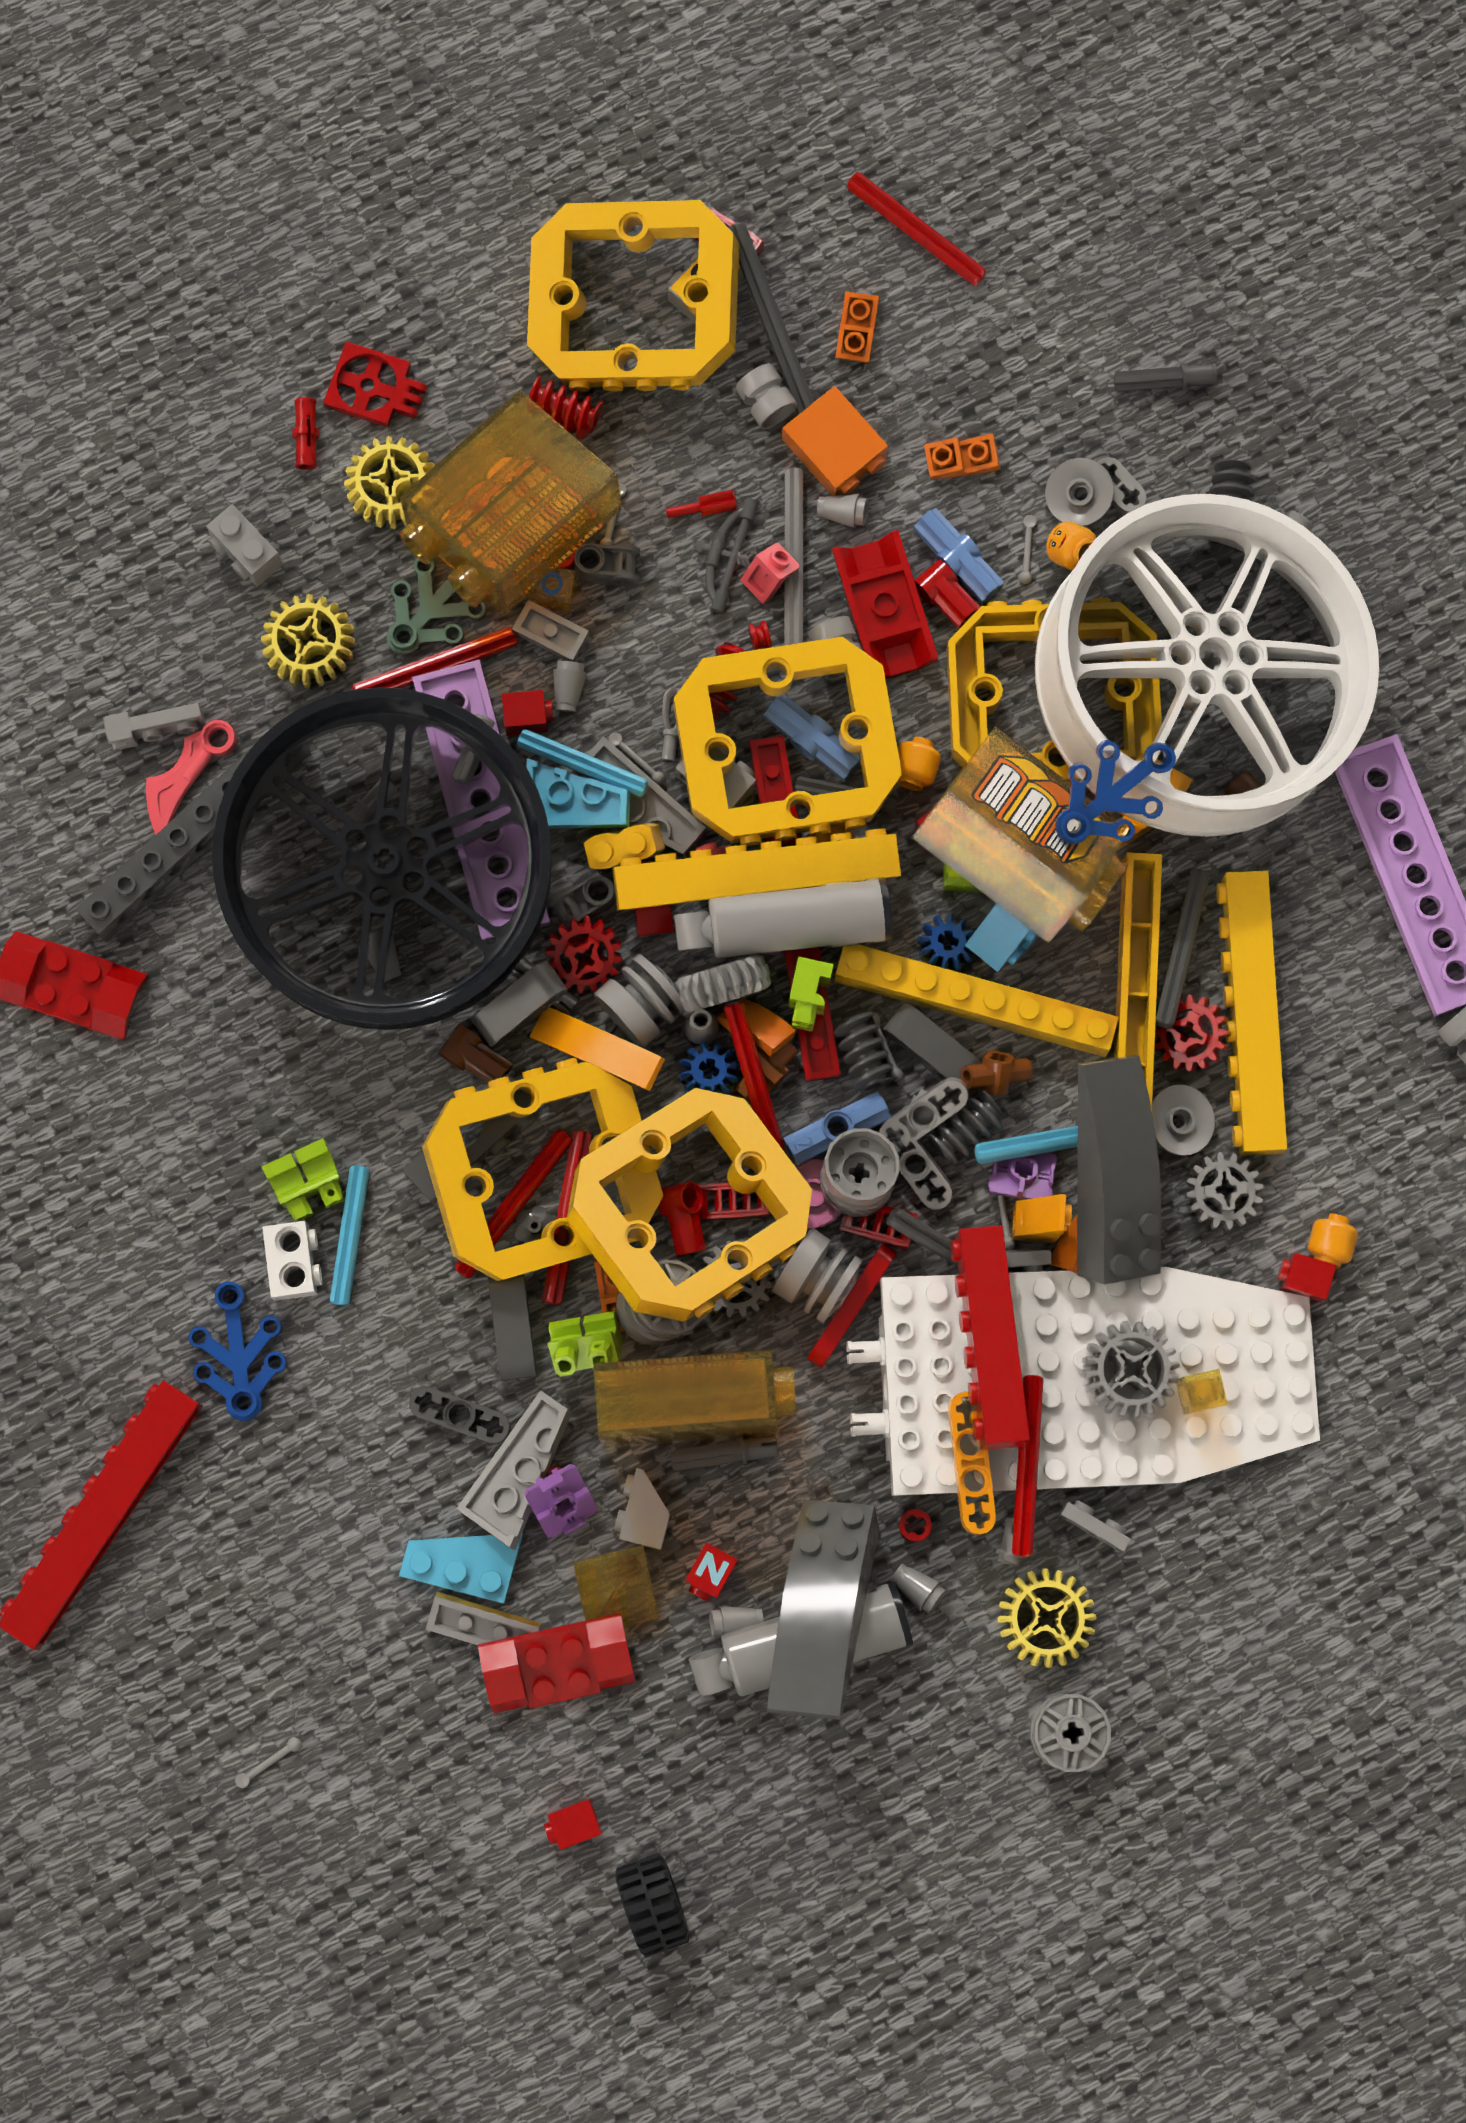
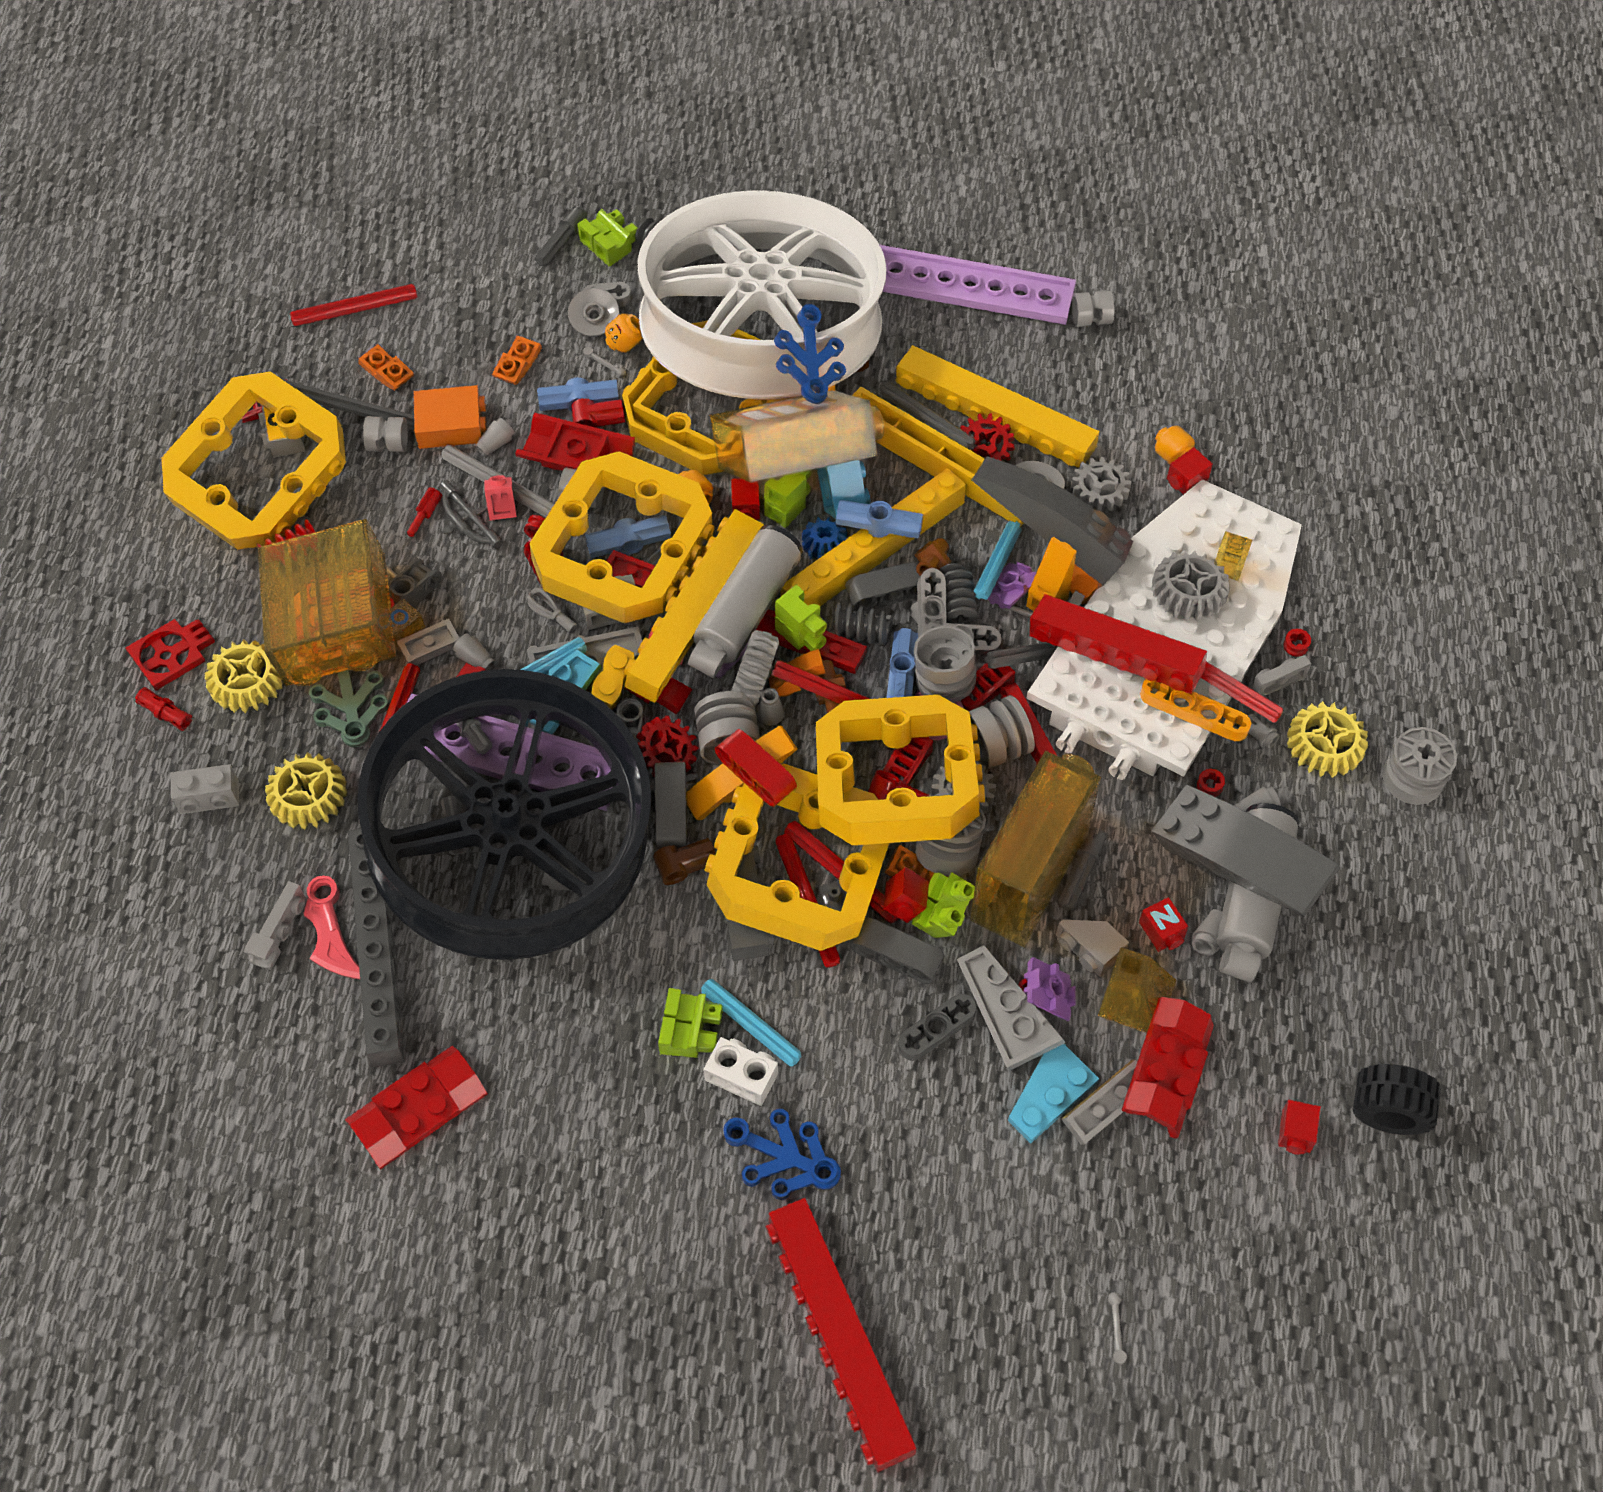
camera: 55 degrees left, 20 degrees down
(571, 1299) = (906, 895): none -> red brick
(594, 1066) = (755, 767): none -> red beam
(722, 1068) = (801, 721): blue gear -> none
(978, 971) = (879, 519): none -> medium blue piece
(1165, 1512) = (1299, 649): none -> red bush
(1196, 428) = (607, 236): none -> lime hips

